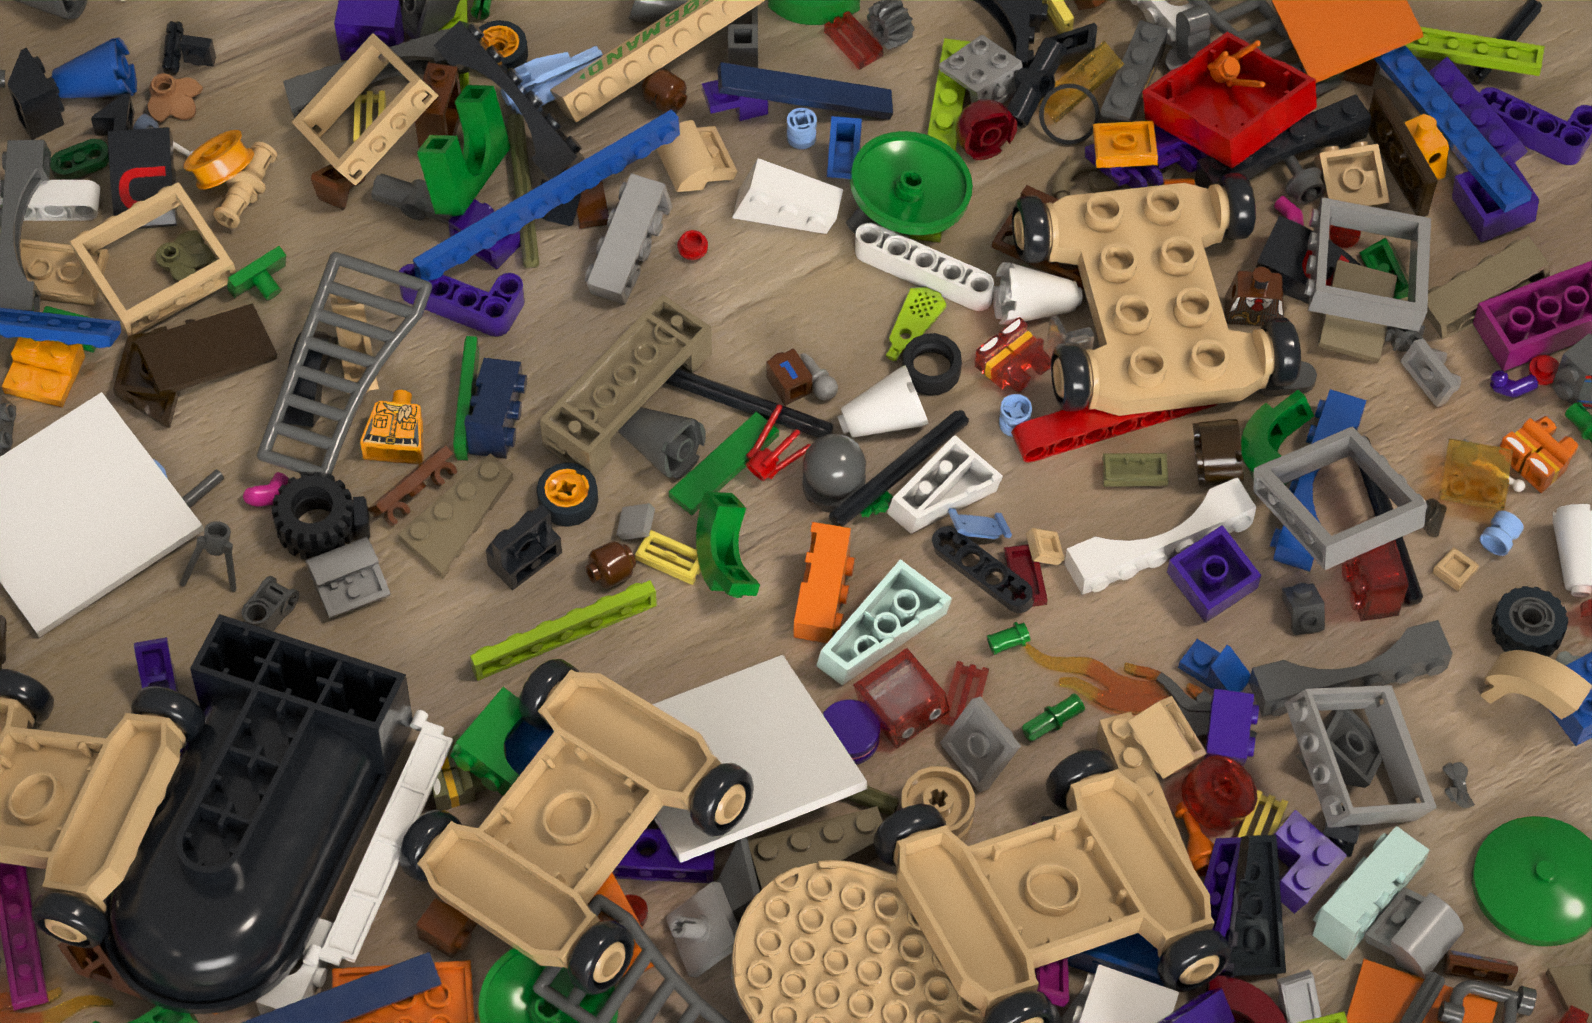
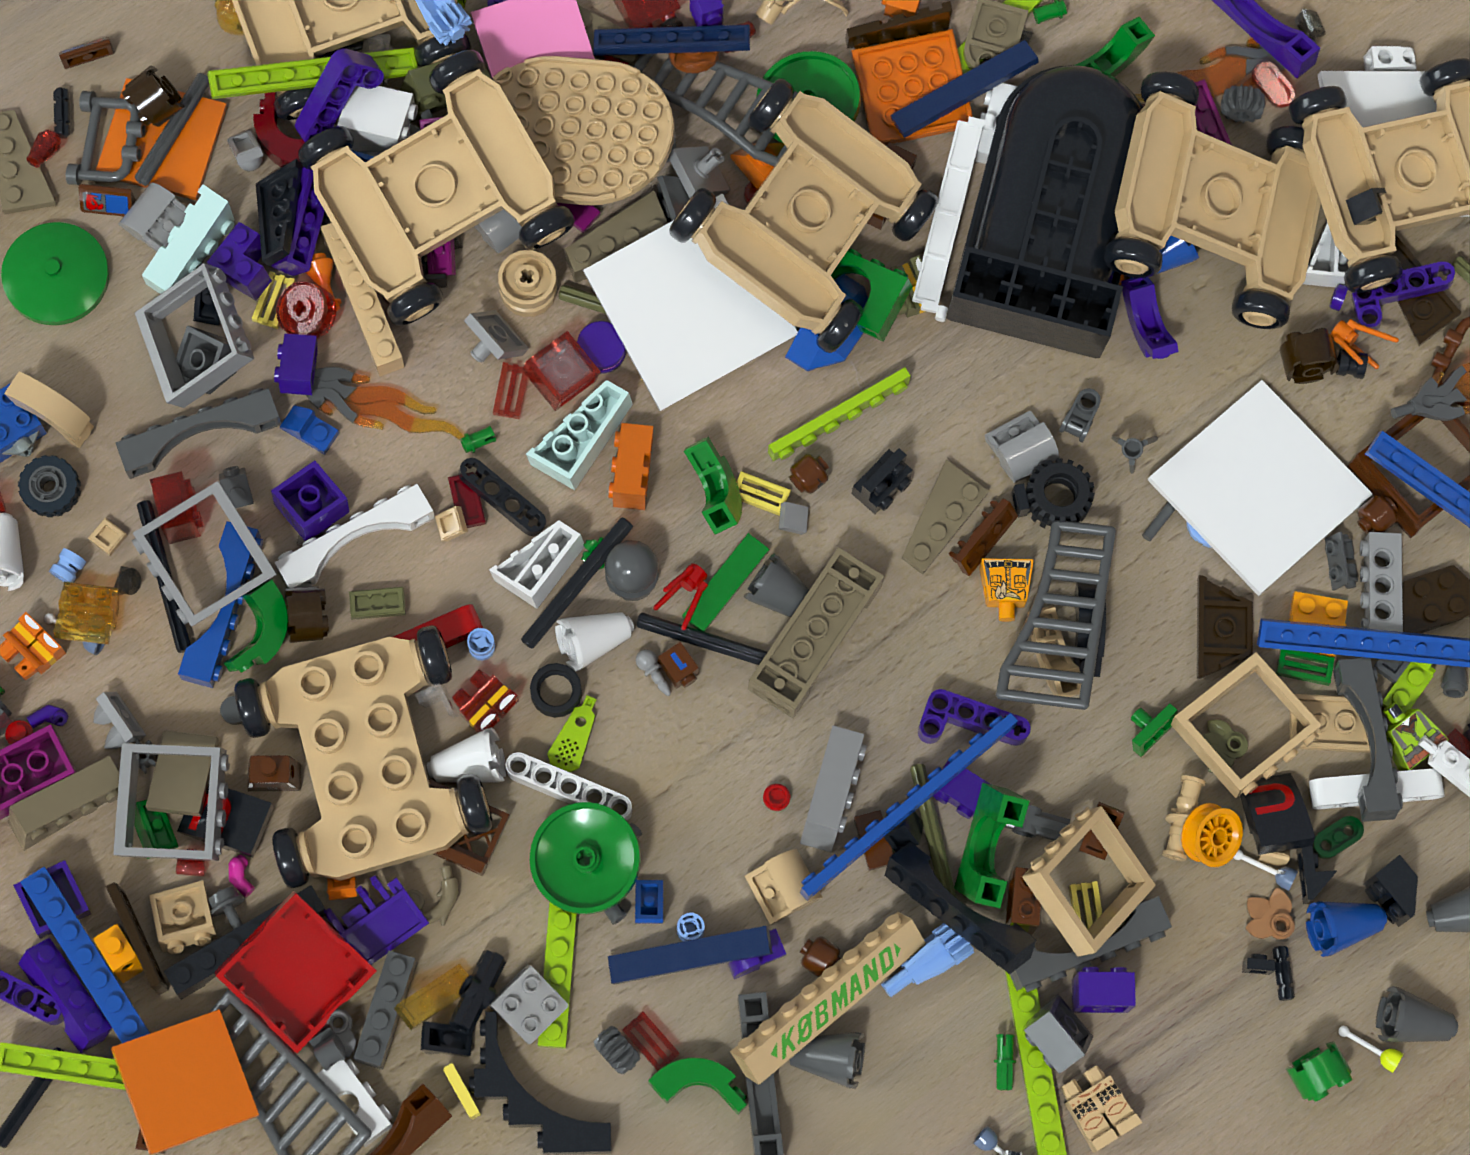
camera: 170 degrees right, 15 degrees up
(205, 349) = (1182, 645): dark brown tile -> none
(264, 494) = (1106, 517): dark pink arm -> none
(466, 390) = (952, 621): green tile -> none
(495, 408) = (925, 610): dark blue wedge -> none
(508, 40) = (993, 989): wheel -> none
(567, 509) = (857, 525): wheel -> none
(787, 199) = (695, 842): white wedge -> none
(980, 526) = (507, 536): medium blue piece -> none
(985, 128) = (524, 938): dark red cylinder -> none
(1041, 113) = (444, 945): black piece -> none
(1053, 717) = (439, 374): green axle -> none
(1125, 144) = (391, 921): light orange tile -> none
(1167, 737) = (347, 340): tan slope -> none
(1227, 68) = (298, 1010): orange plant -> none
(1458, 792) = (117, 349): dark grey piece -> none

